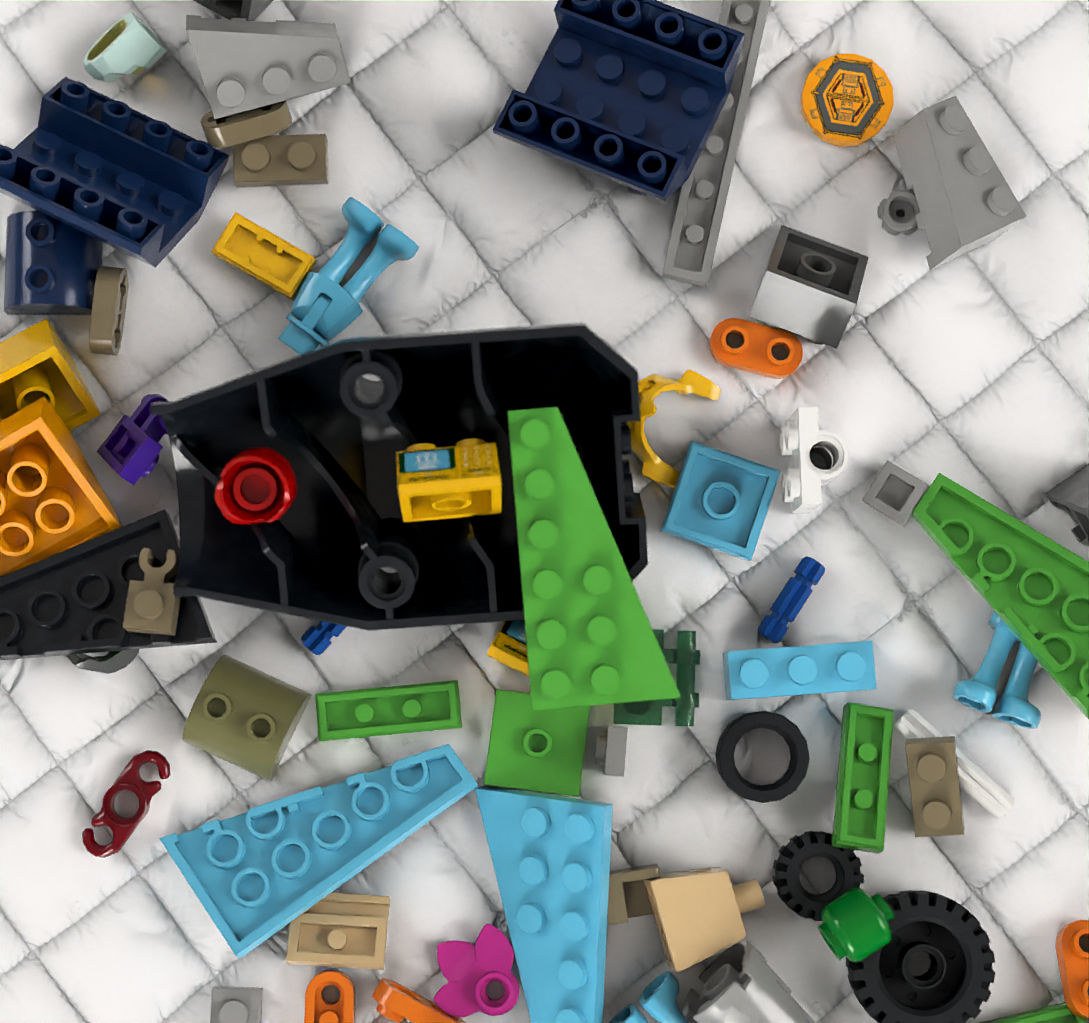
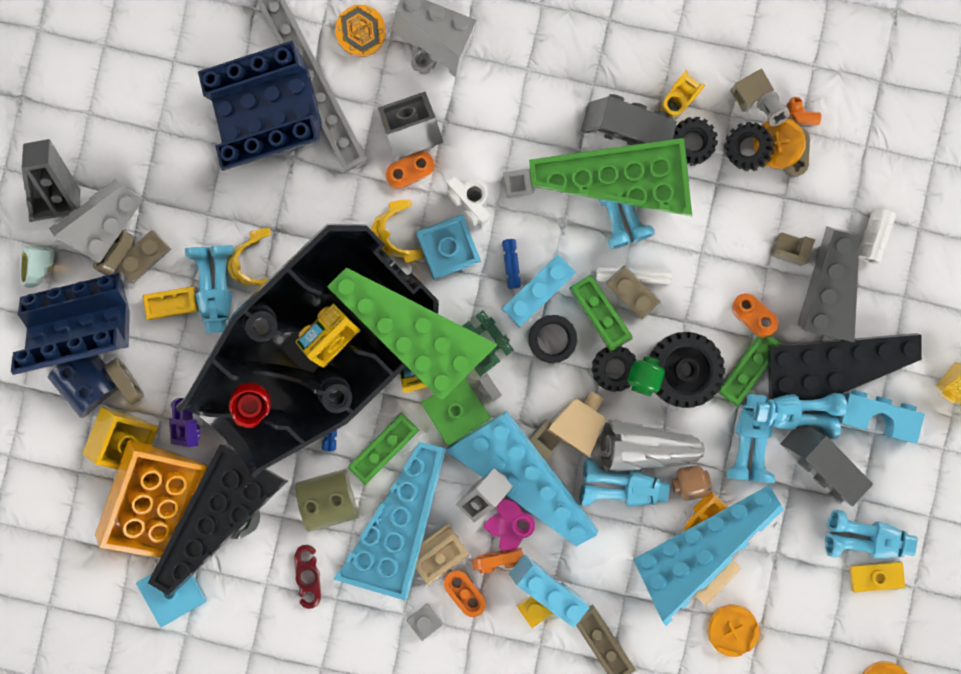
camera: 40 degrees left, 5 degrees up
(152, 602) = (246, 486): dark tan plate -> none
(398, 277) = (234, 265): none -> yellow helmet
(478, 900) = (484, 495): none -> light grey brick

